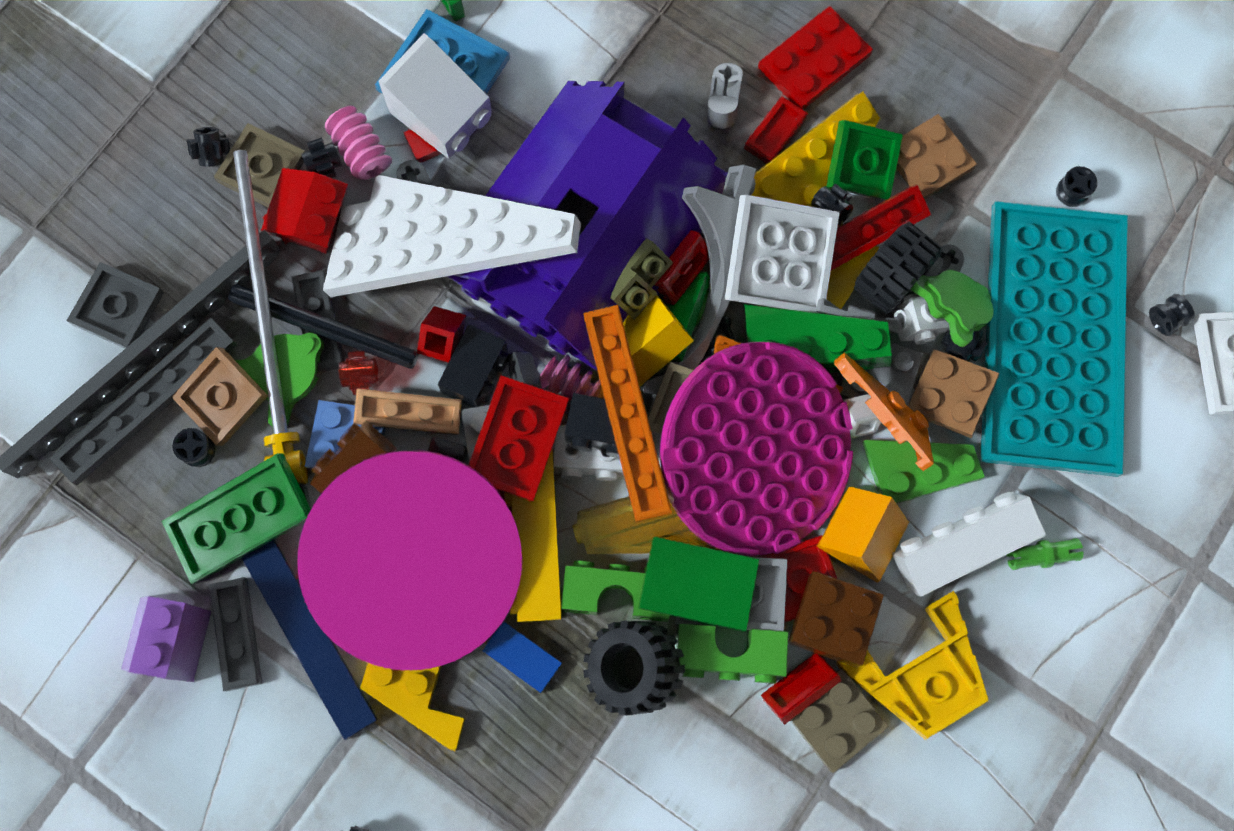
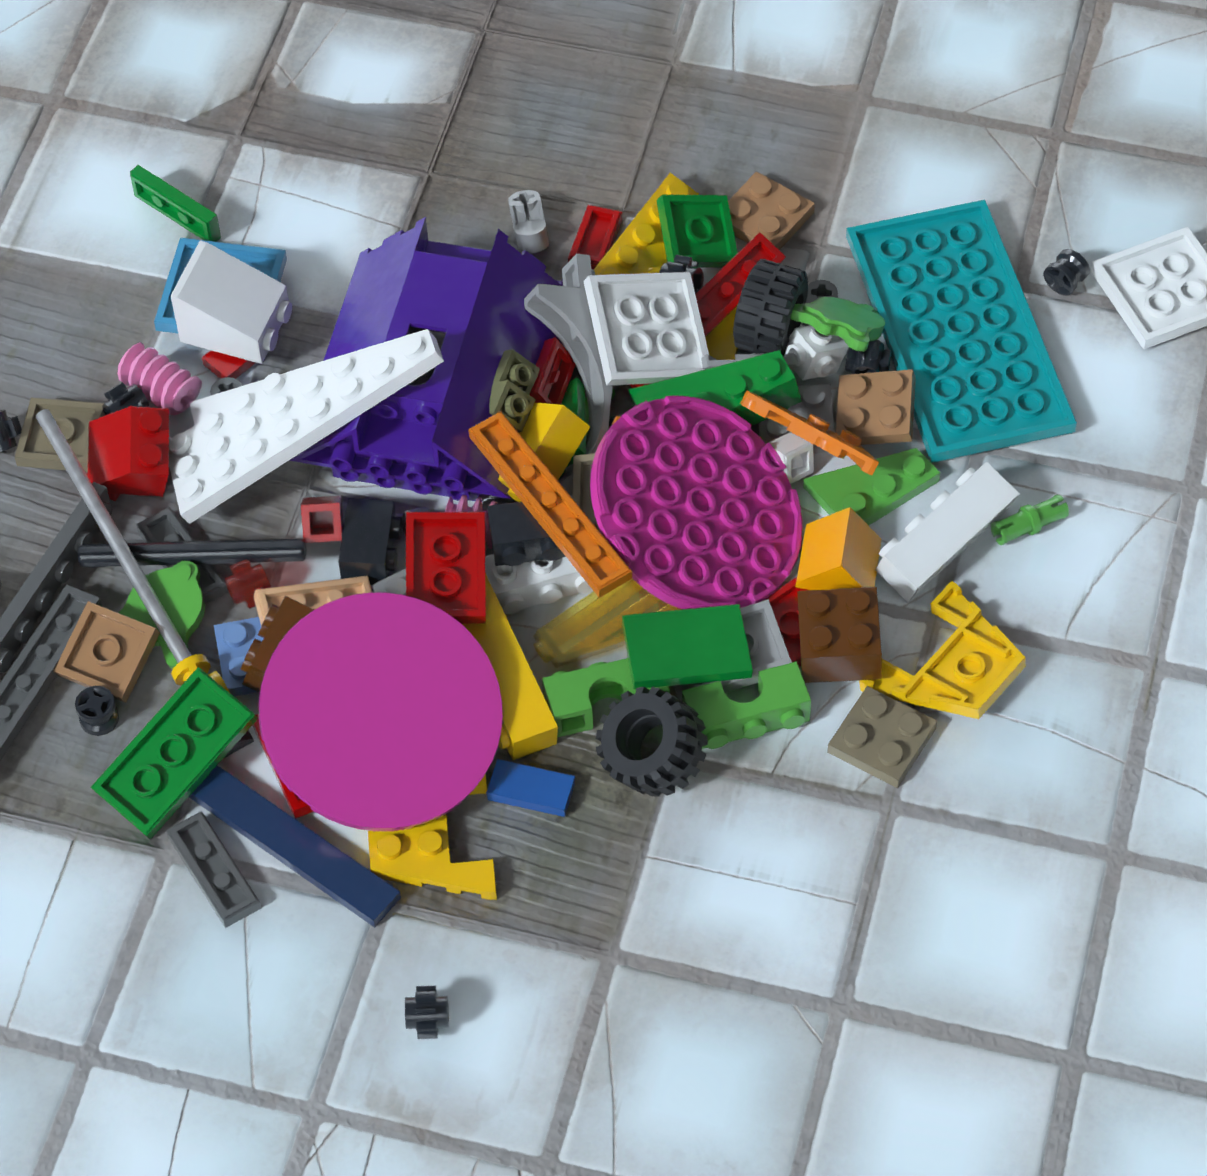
camera: 15 degrees left, 20 degrees down
(166, 639) = (139, 882): medium lavender slope -> none
(800, 688) = (832, 716): red tile -> none
(815, 58) = (608, 162): red plate -> none
(1078, 178) = (923, 191): black wheel -> none

